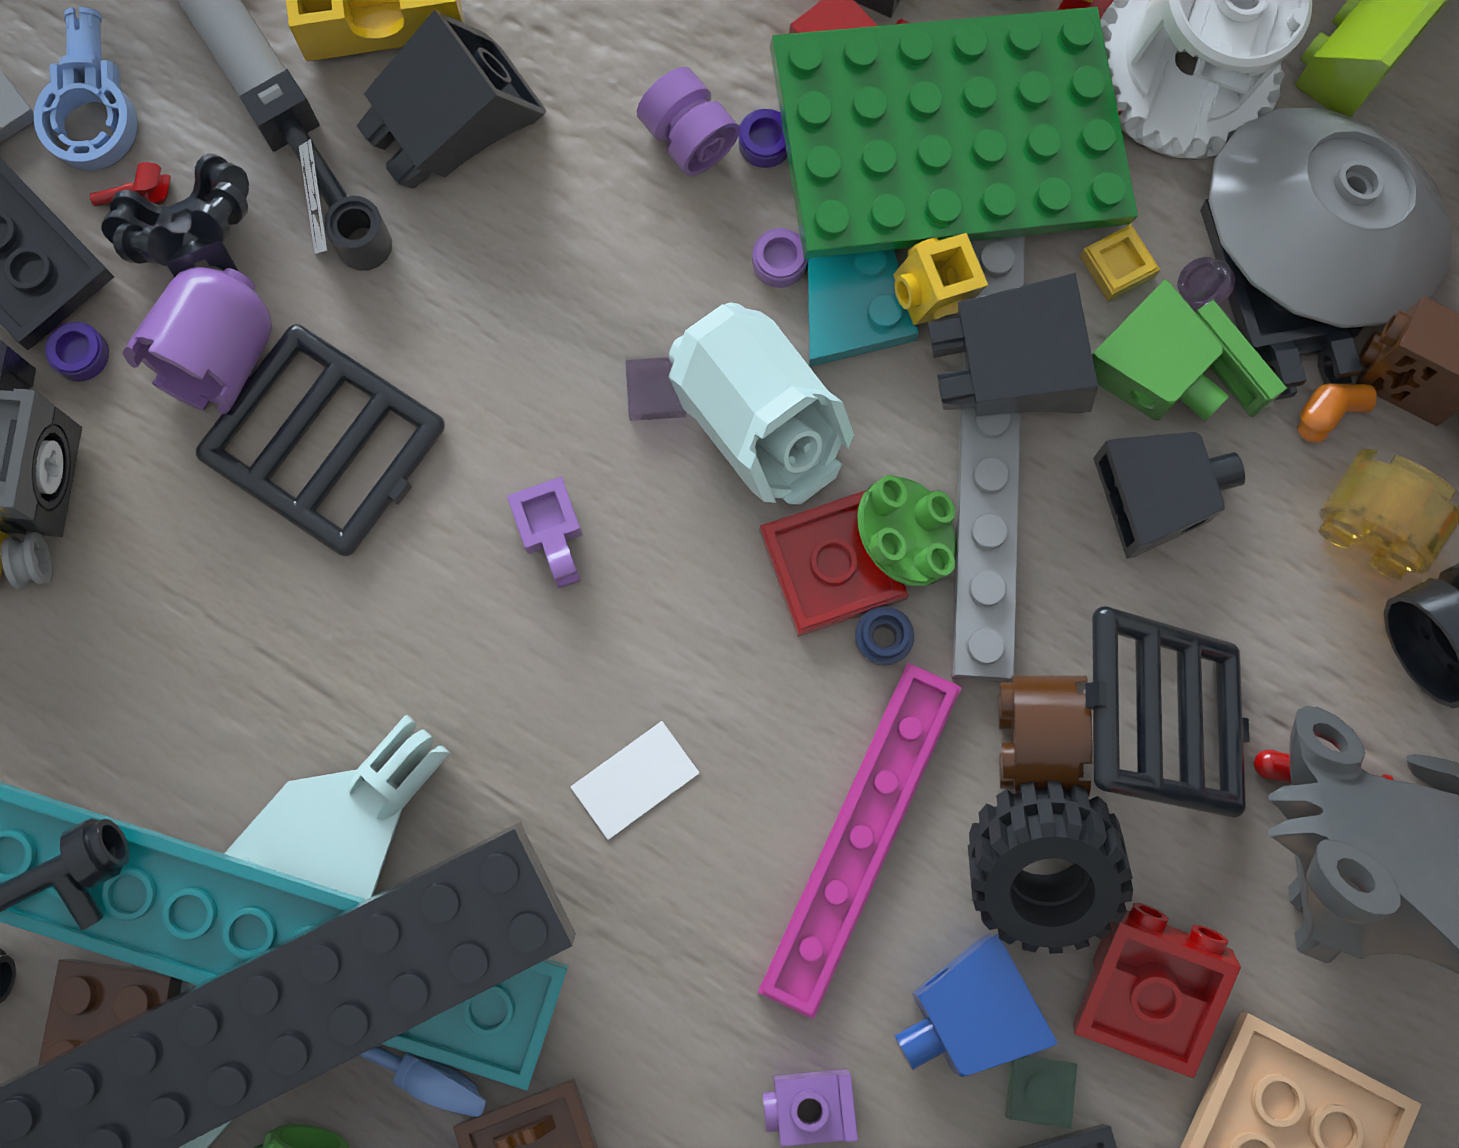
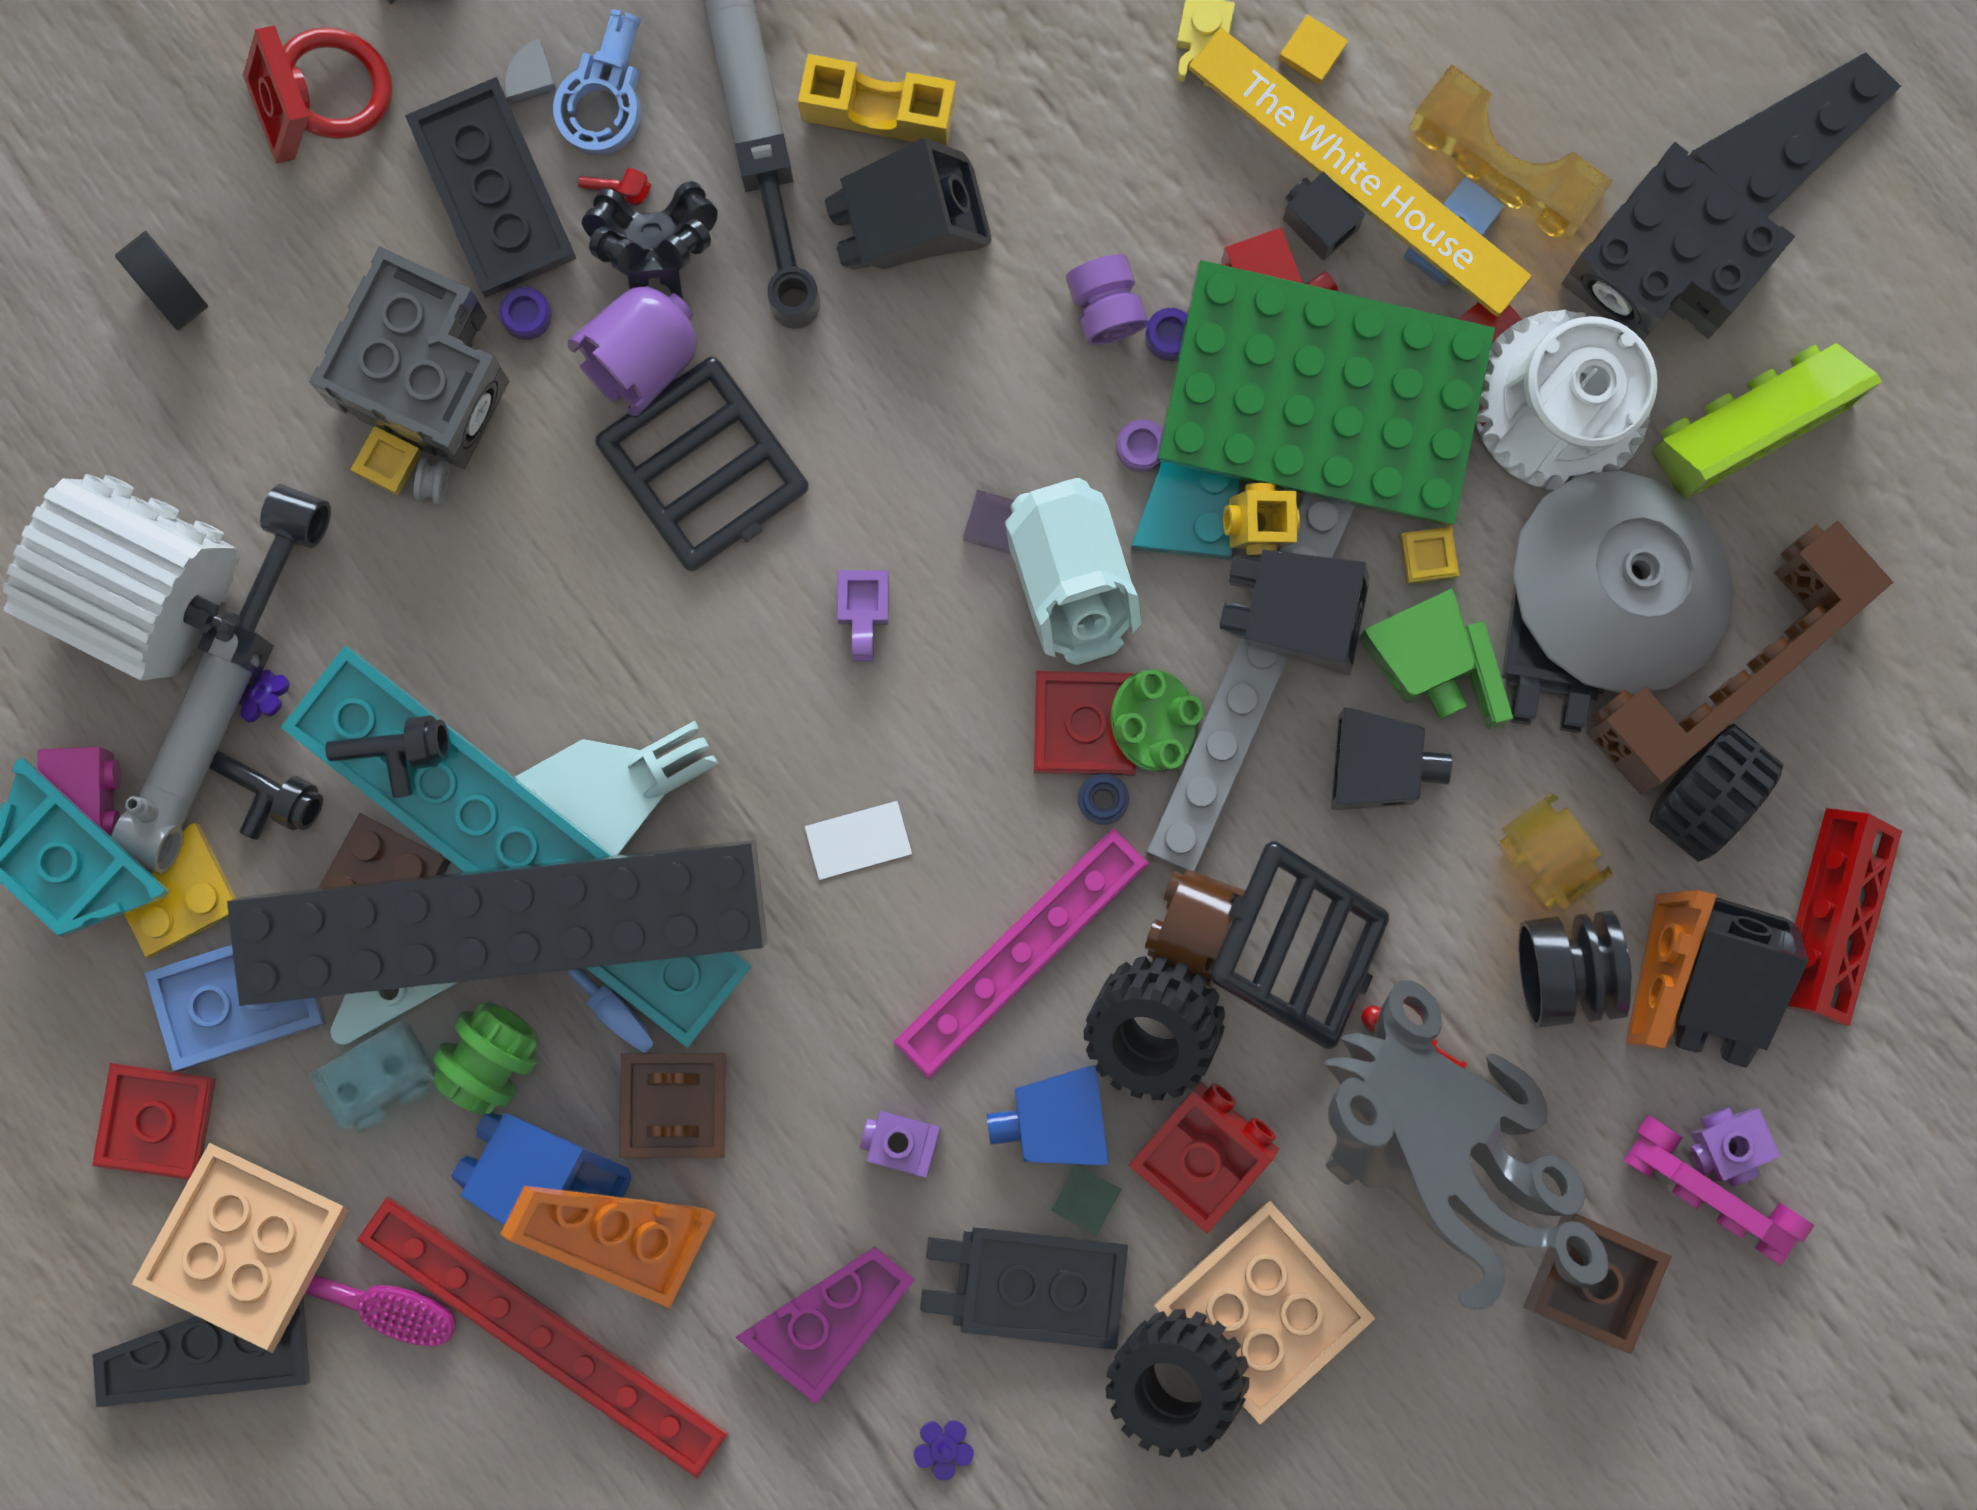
camera: 20 degrees right, 5 degrees up
(312, 197) = (766, 255): white sticker -> none
(1205, 281) = (1491, 601): clear purple plate -> none
(1329, 405) = (1552, 743): orange arm -> none

